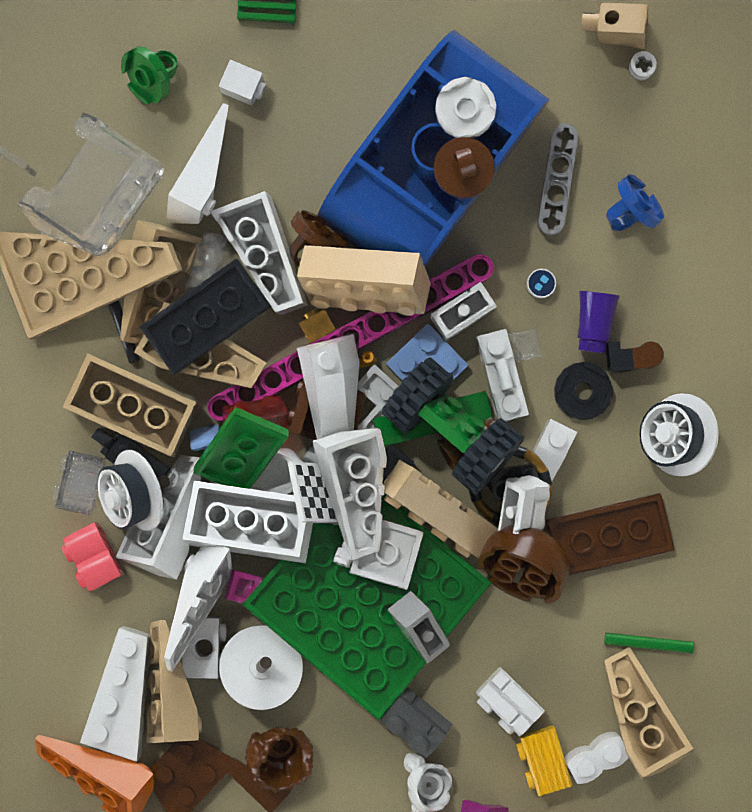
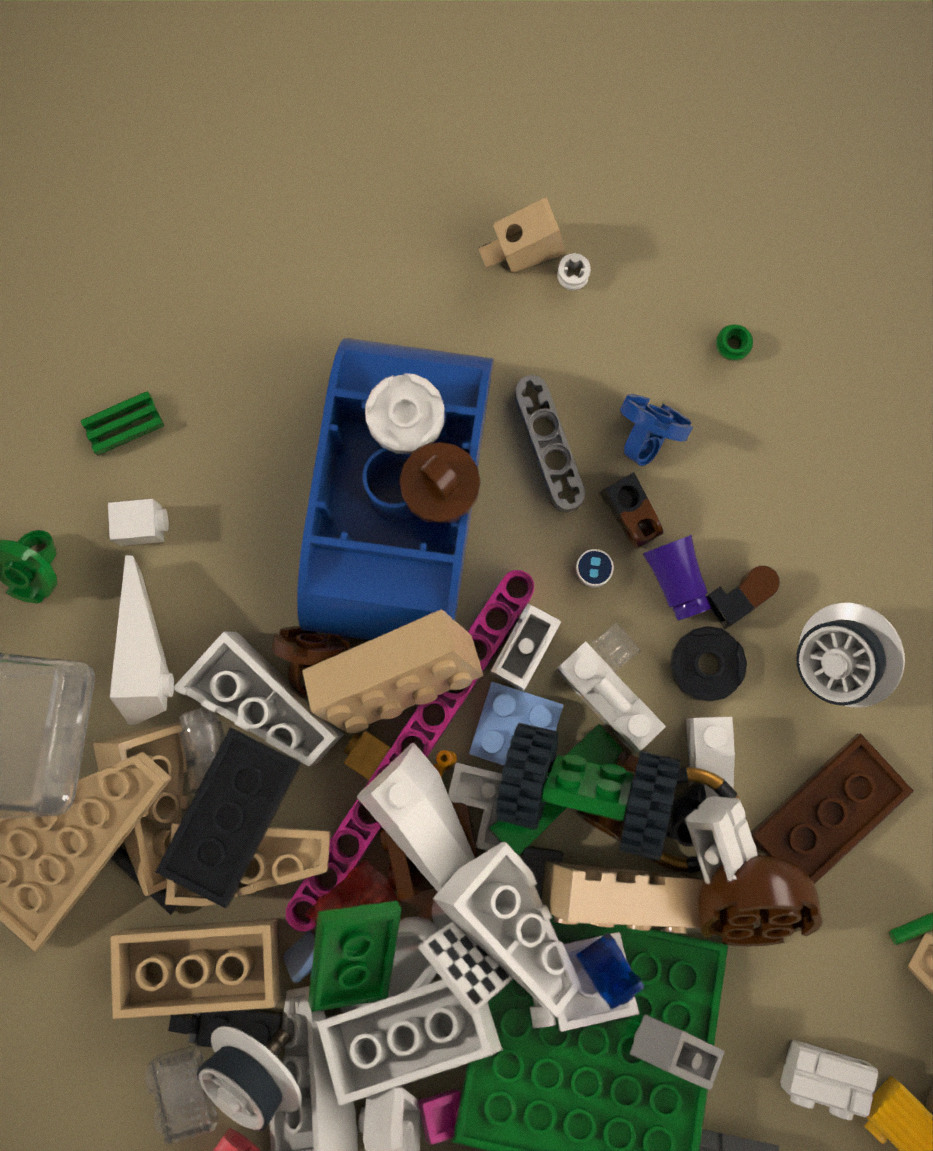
camera: 25 degrees left, 5 degrees down
(402, 549) = (609, 972): none -> clear blue bracket
(589, 257) = (633, 510): none -> leg
(734, 171) = (738, 333): none -> green plate

